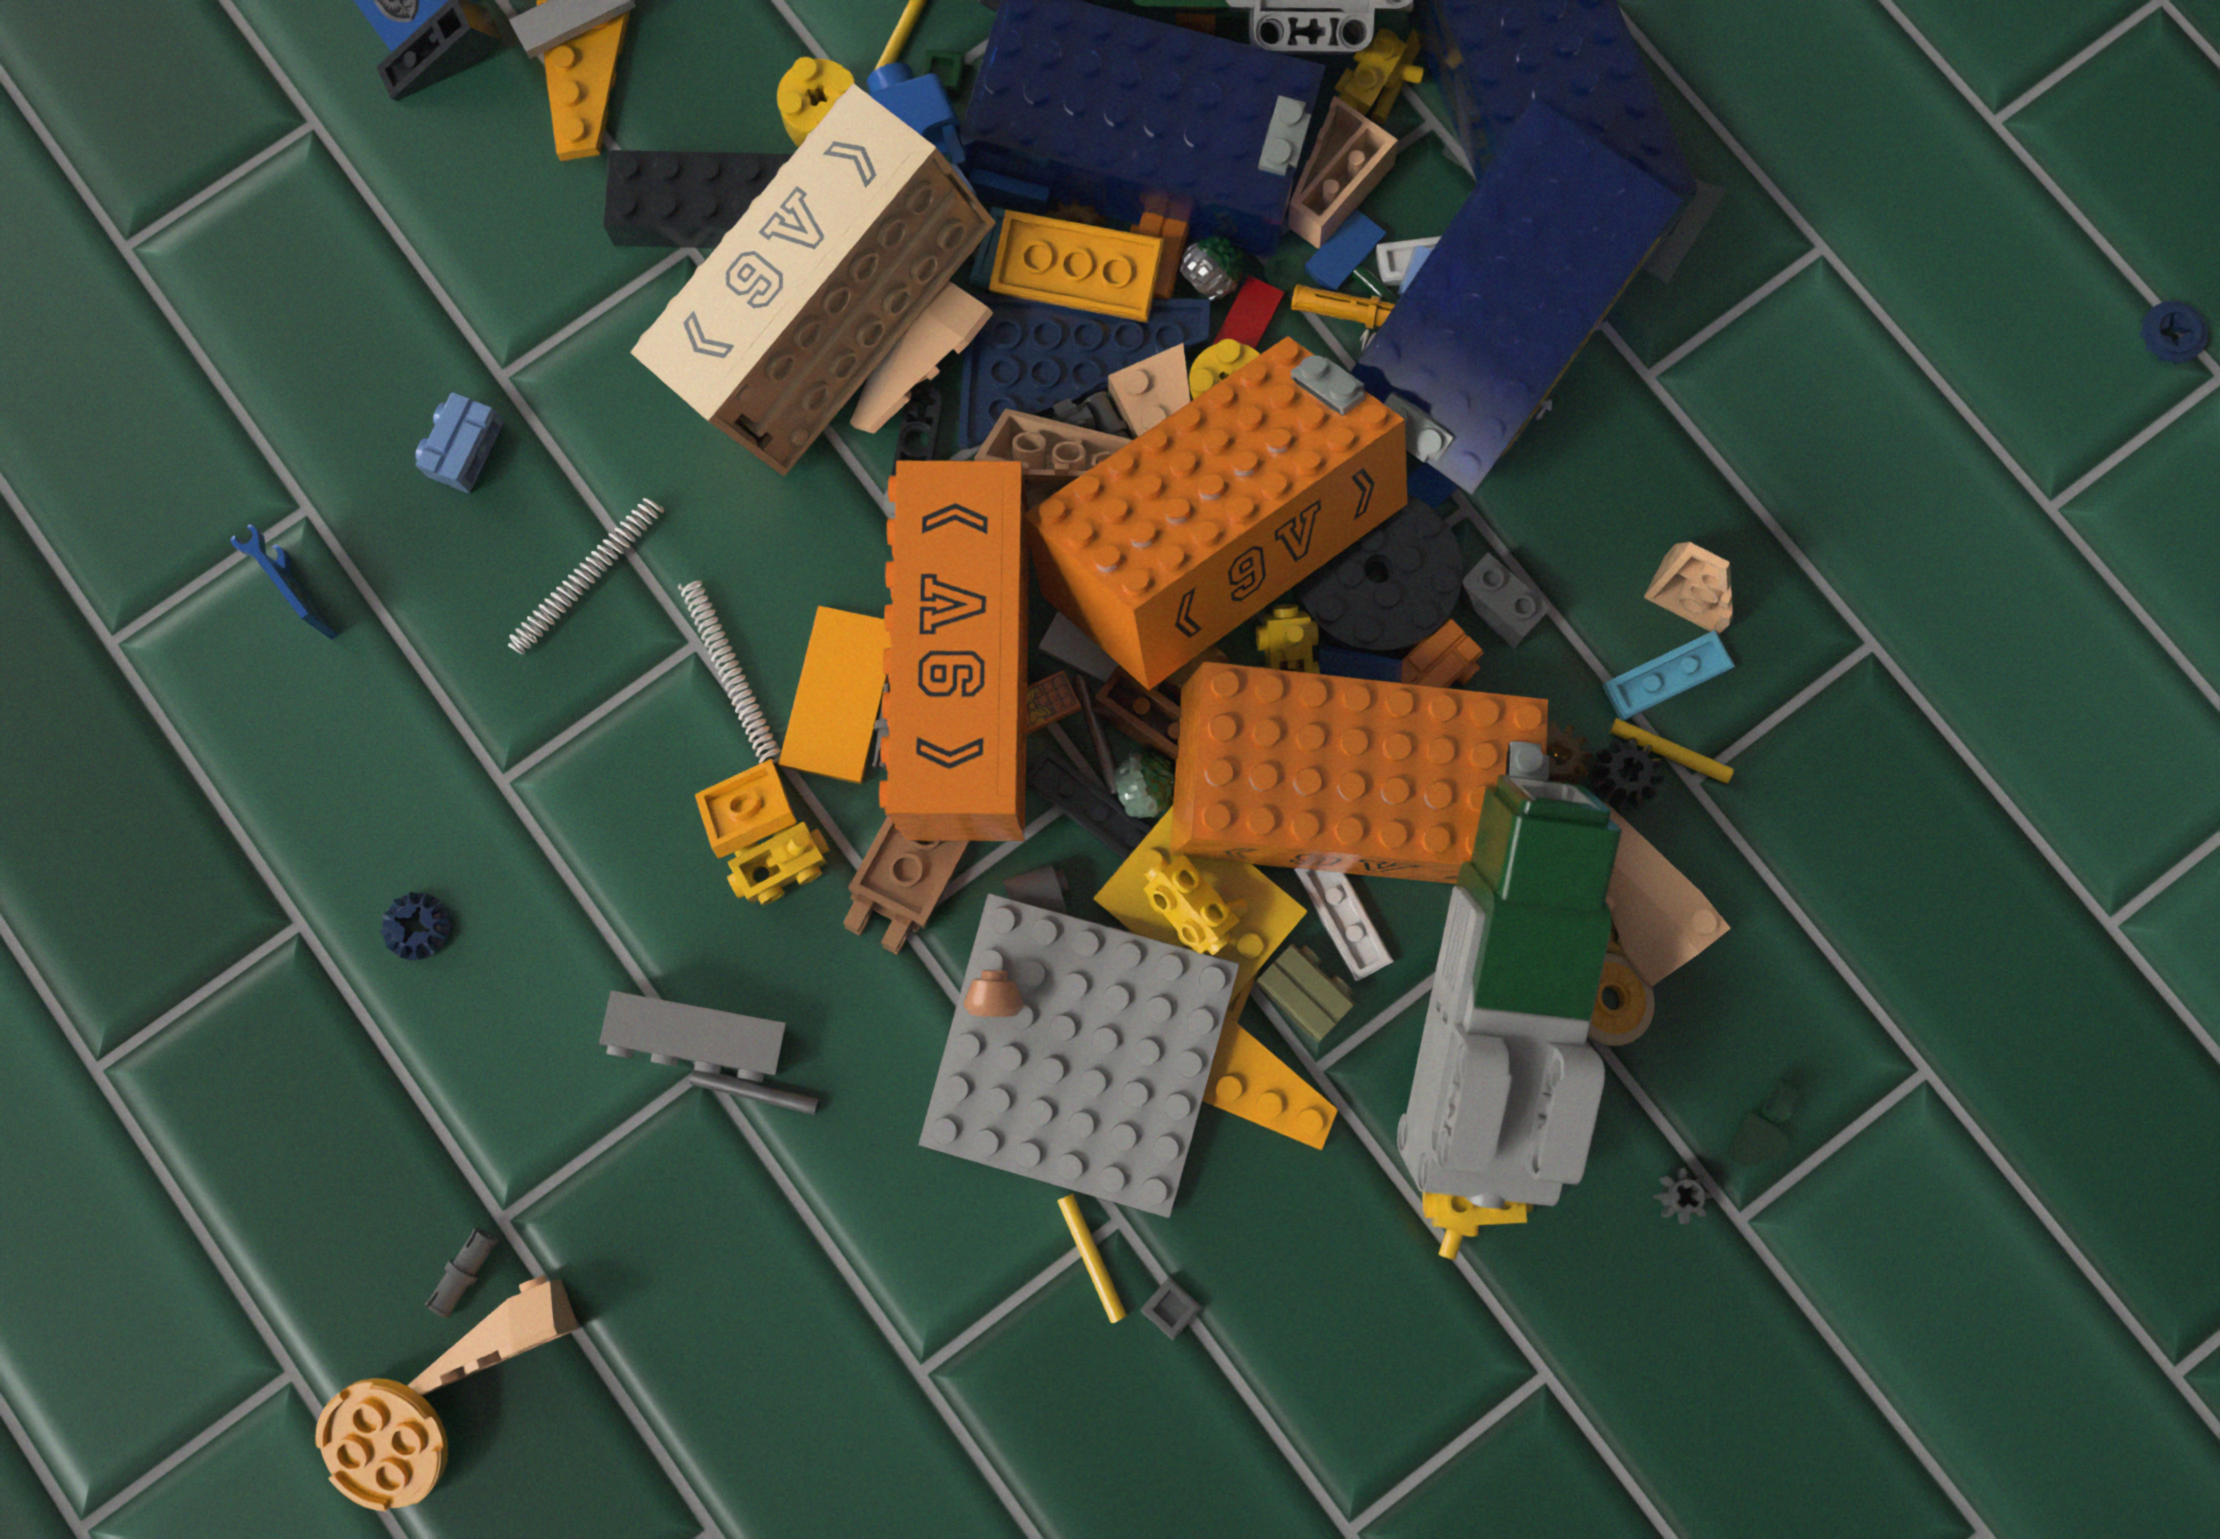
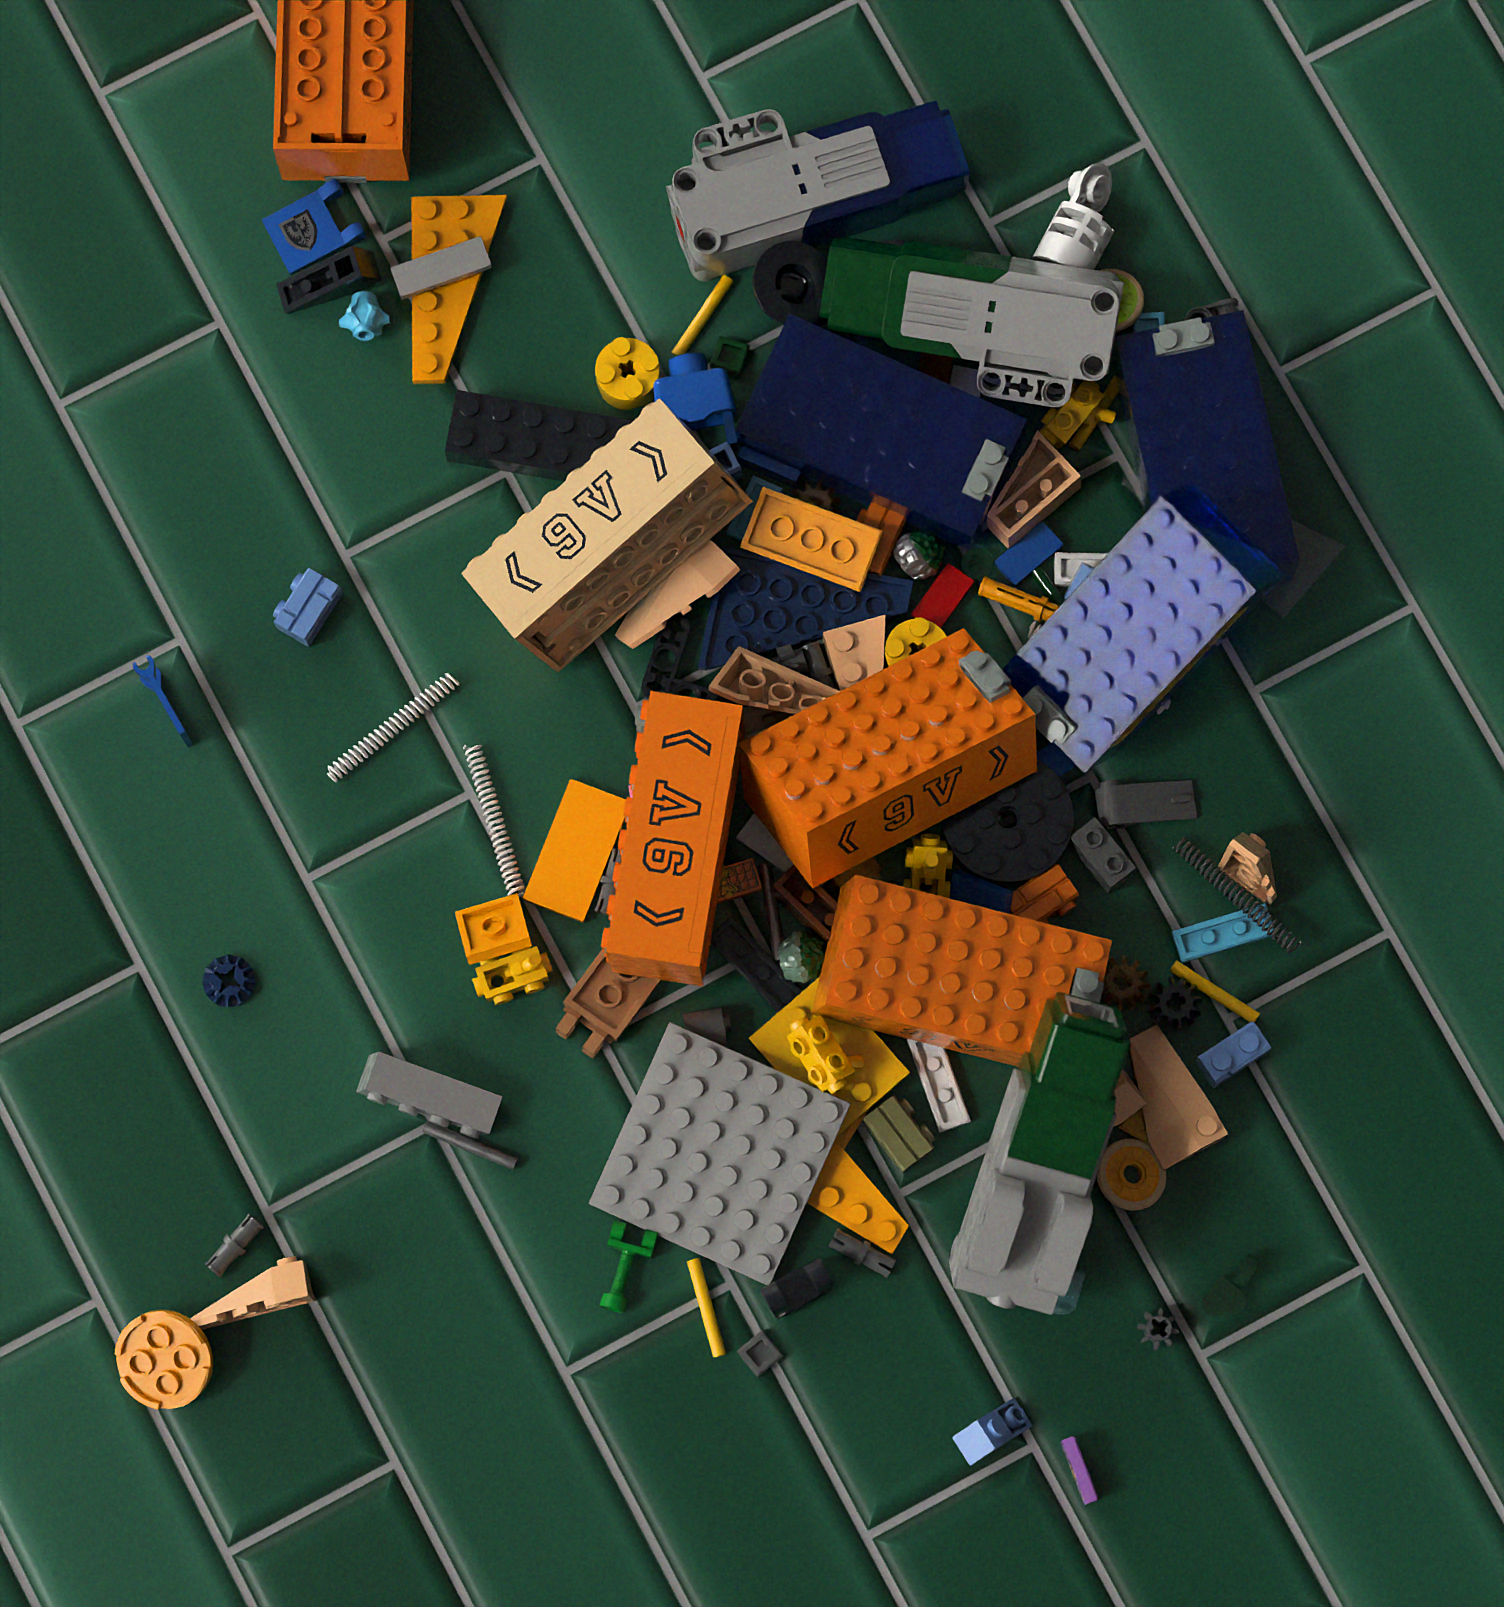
camera: 10 degrees right, 0 degrees up
(486, 85) = (364, 316): none -> medium azure rock
(971, 1265) = (615, 1298): none -> green bar
(993, 995) = (662, 1098): nougat cone -> none
(1206, 1216) = (797, 1288): none -> black piece
(1283, 1154) = (862, 1253): none -> dark grey pin
(1463, 1218) = (989, 1318): yellow brick -> none
(1492, 1367) = (992, 1431): none -> medium blue slope
(1541, 528) = (1144, 803): none -> dark grey door
(1615, 1401) = (1079, 1470): none -> medium lavender tile
(1713, 825) = (1233, 1054): none -> medium blue brick
(1730, 657) = (1234, 898): none -> dark grey piece

